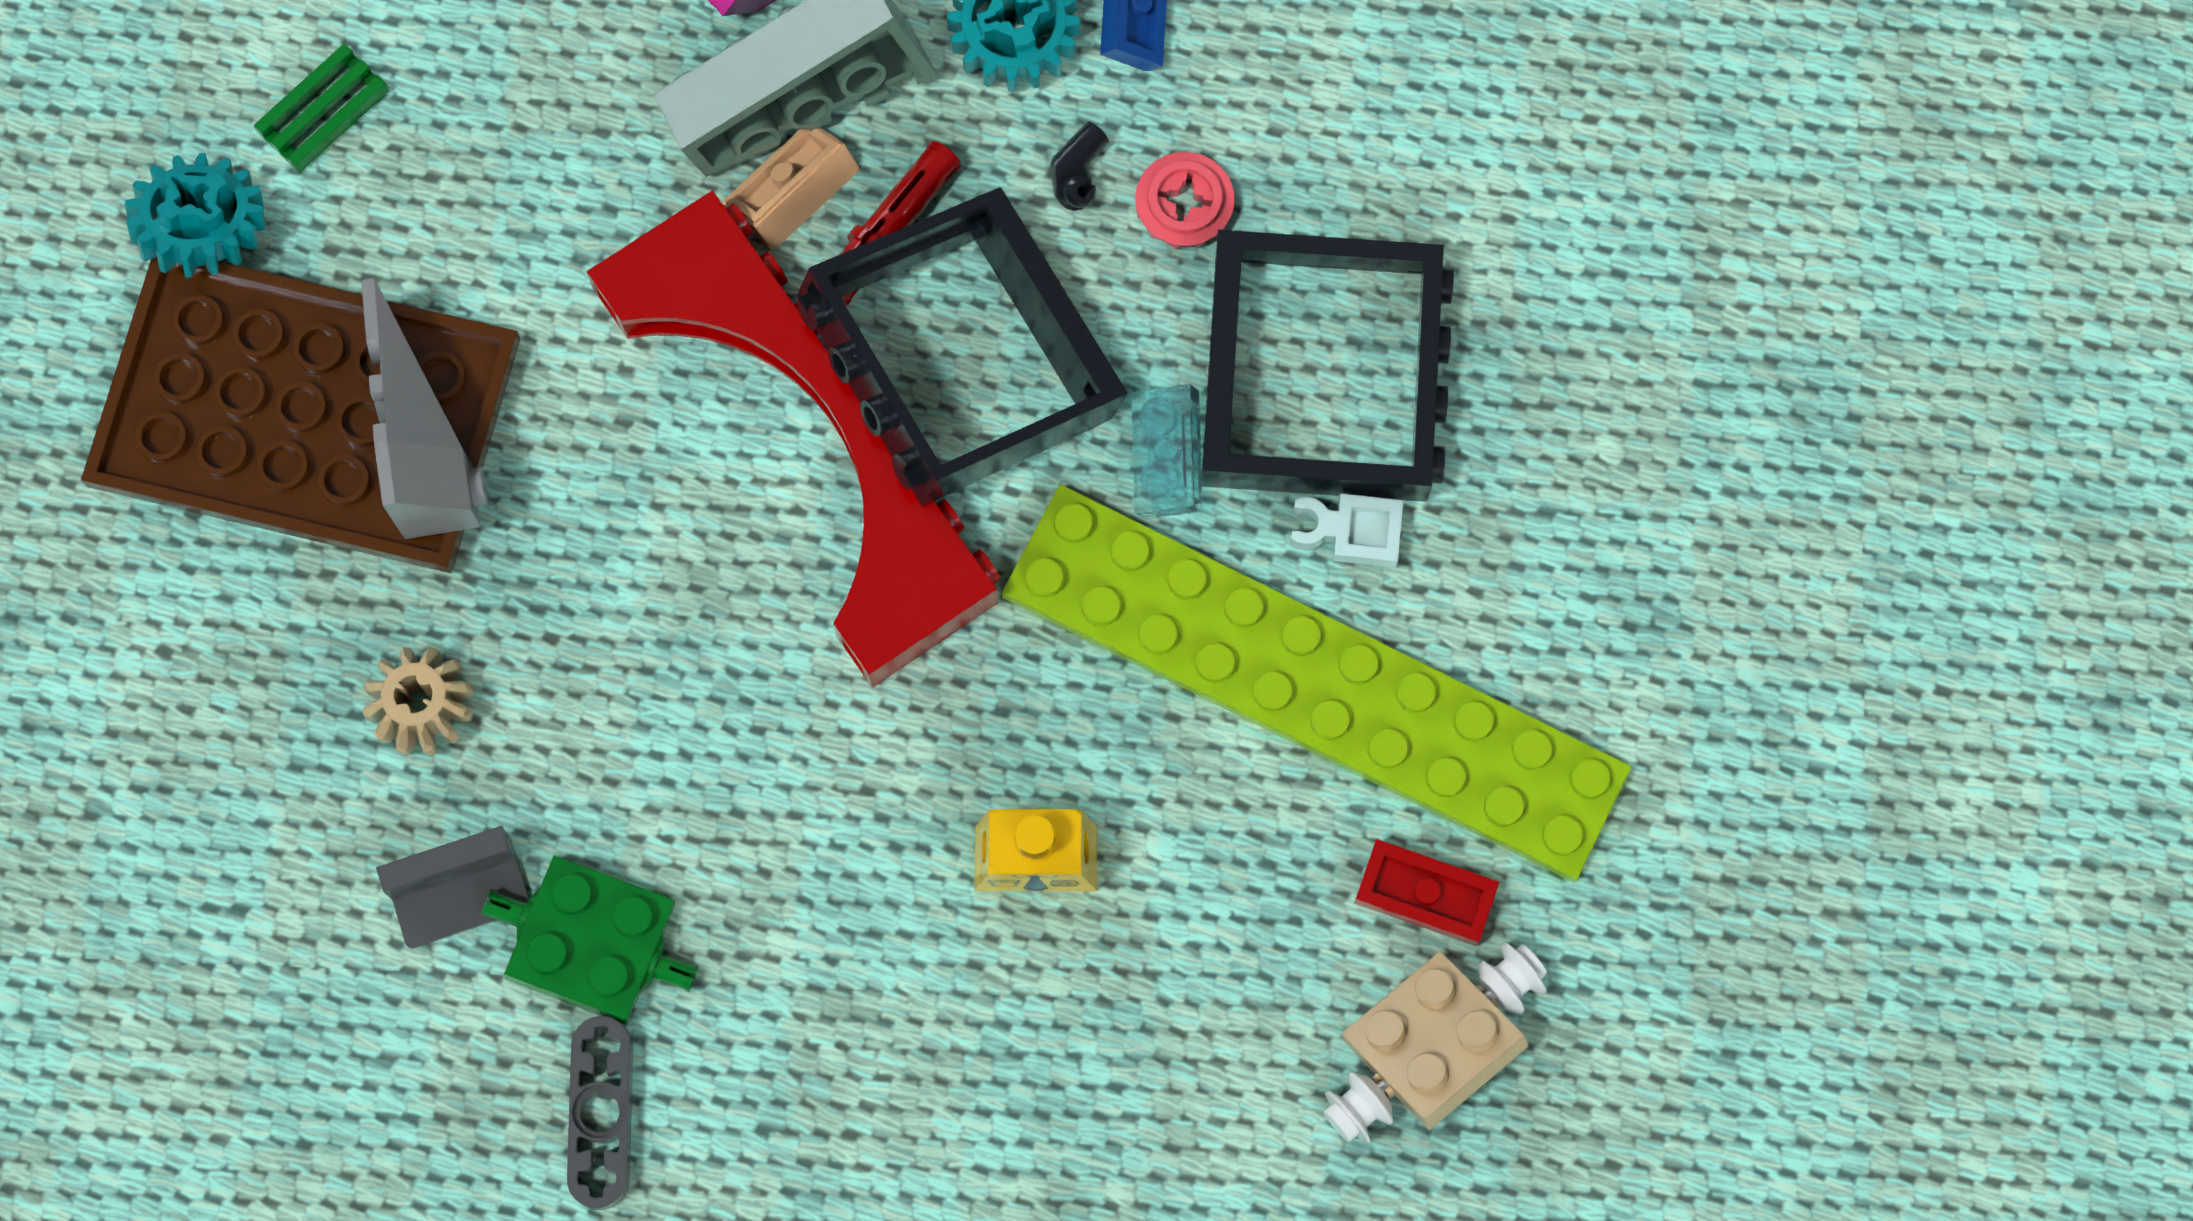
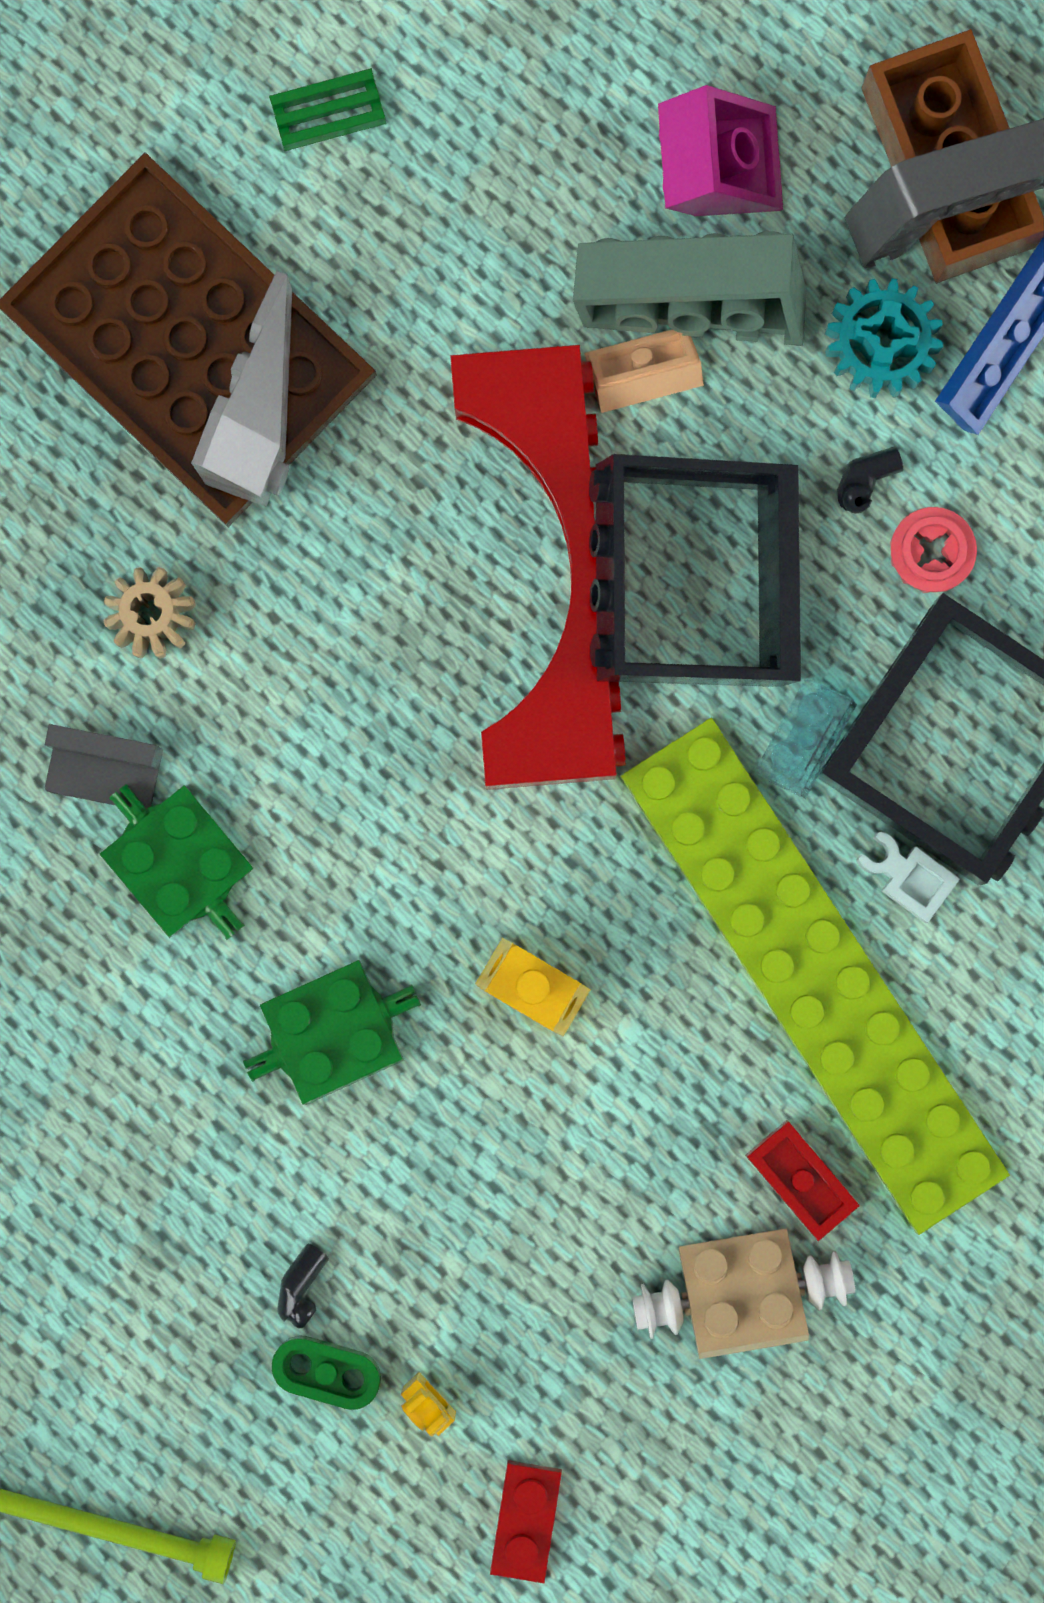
camera: 35 degrees right, 10 degrees up
(195, 215) = (187, 144): teal gear -> none
(586, 1063) = (92, 995): dark grey beam -> none
(854, 1023) = (331, 1032): none -> green plate
(907, 198) = (717, 433): red pin -> none

